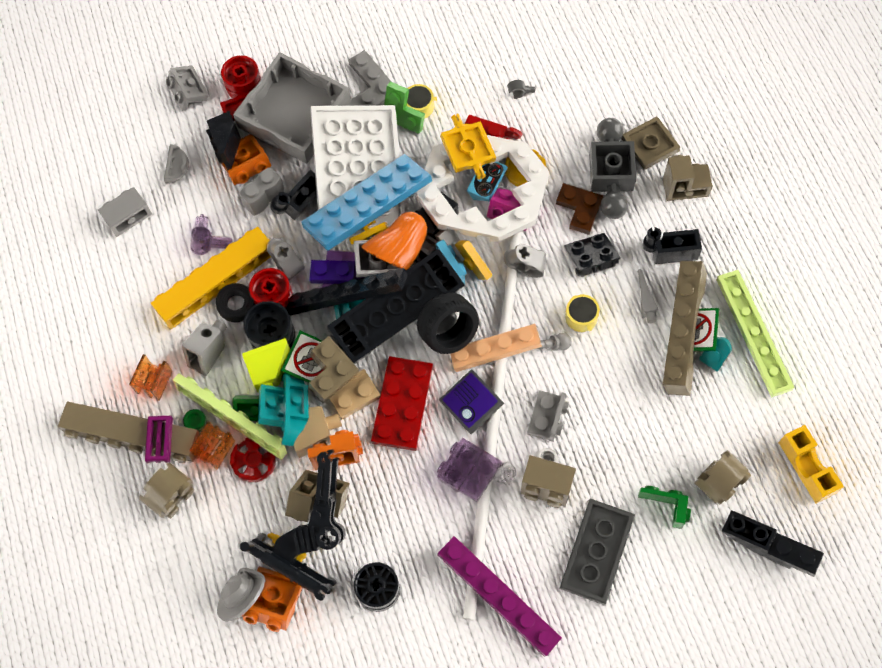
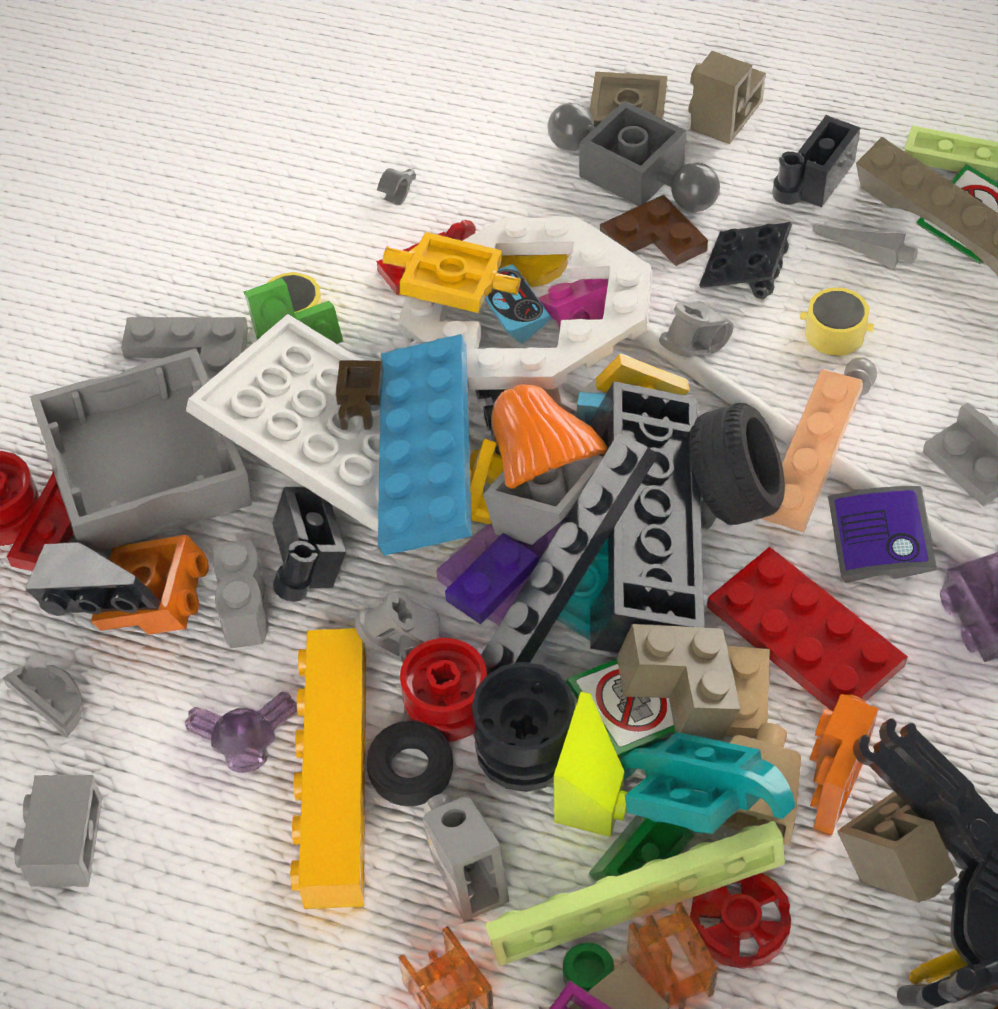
camera: 55 degrees left, 15 degrees down
(374, 159) = (358, 388): none -> dark brown plate

